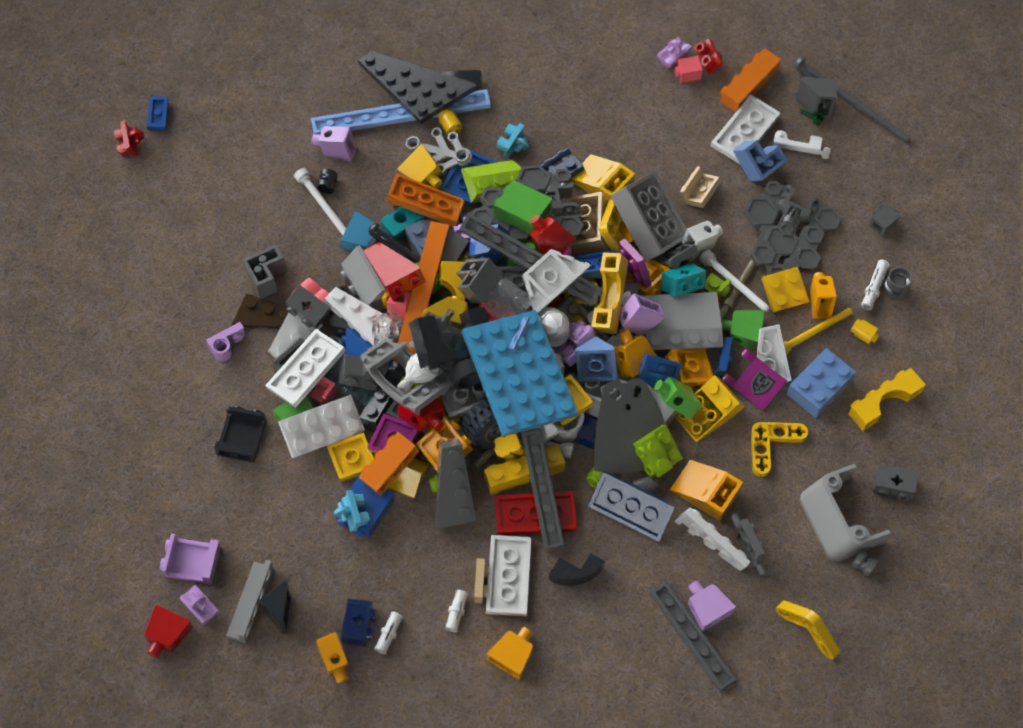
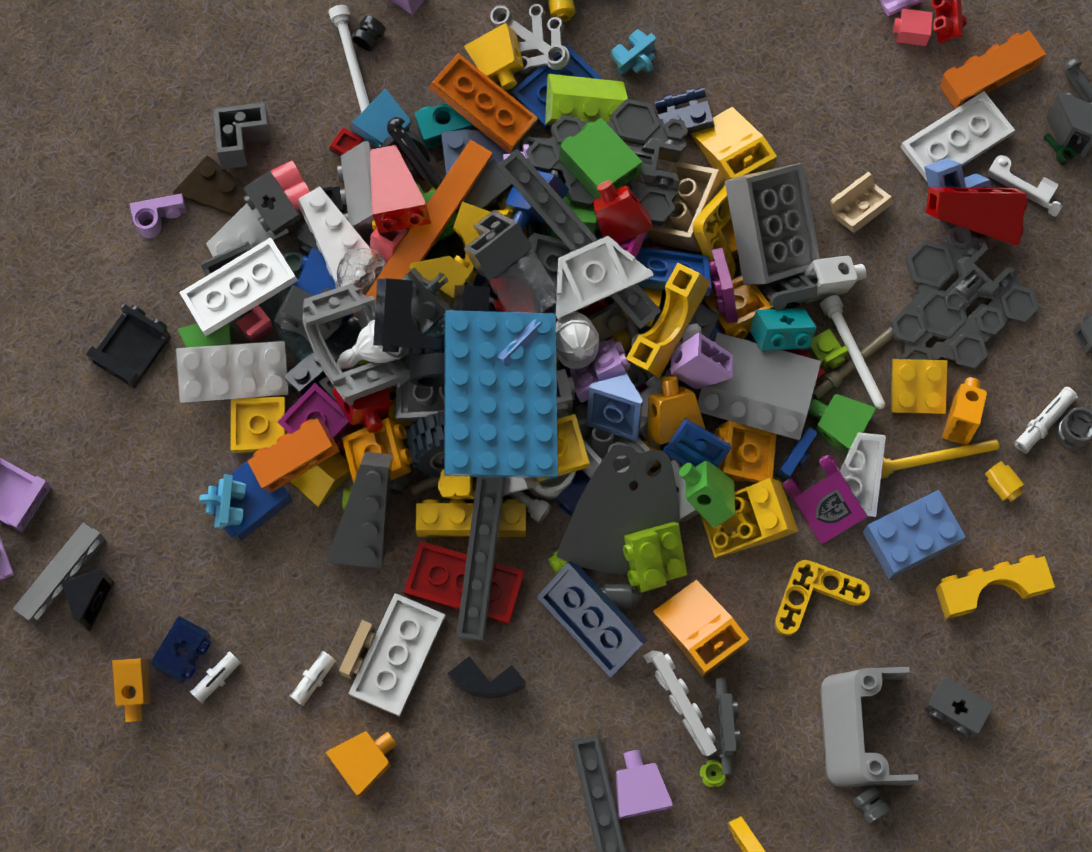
camera: 20 degrees right, 10 degrees up
(338, 255) = (345, 141): none -> red tile
(752, 575) = (708, 779): none -> lime plate
(783, 166) = (982, 210): none -> red slope

